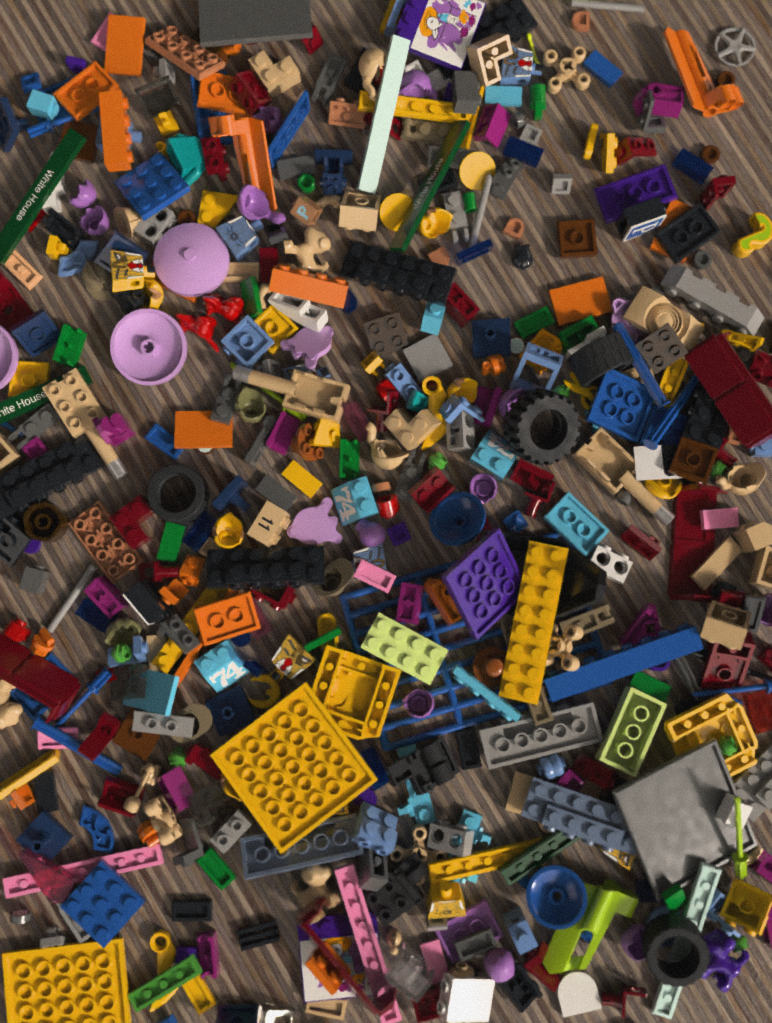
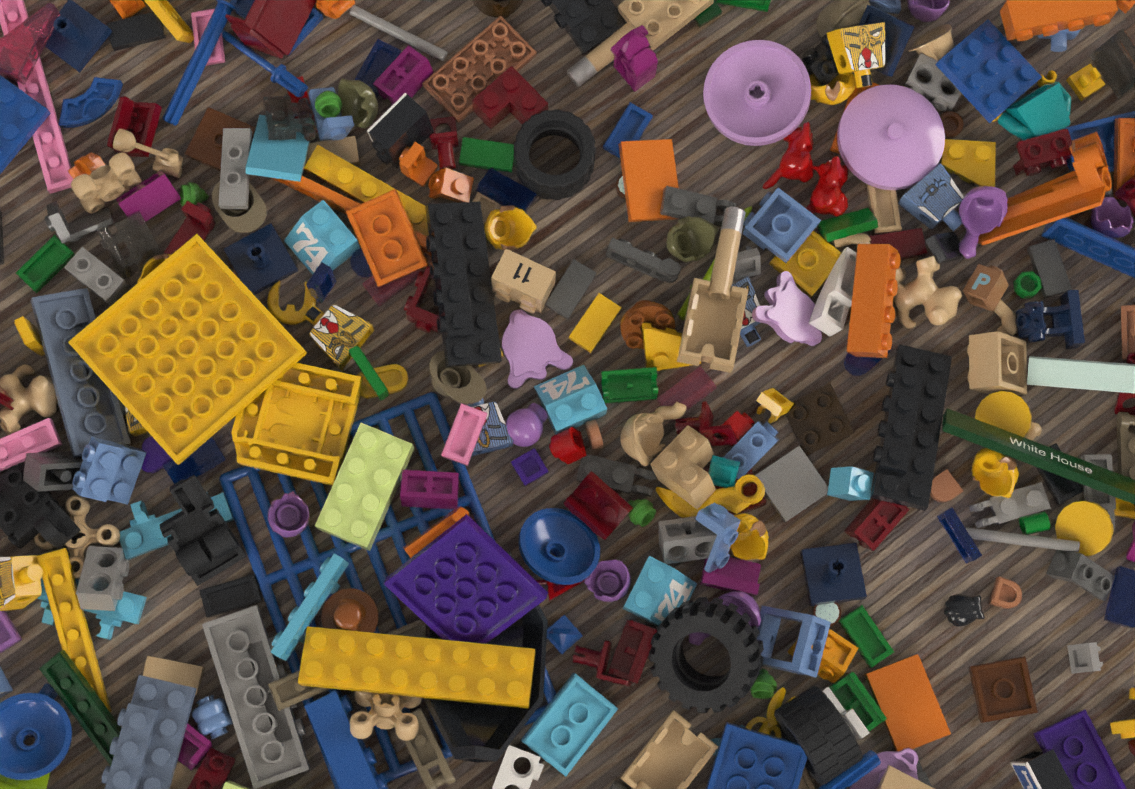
camera: 80 degrees right, 5 degrees down
(100, 736) = (212, 90): dark red bracket -> none
(179, 633) = (360, 175): dark grey bracket -> none
(231, 495) = (559, 226): dark blue tile -> none
(270, 882) = (29, 335): none -> yellow tile
(282, 433) = (657, 287): magenta panel -> none
(494, 364) = (793, 581): orange piece -> none

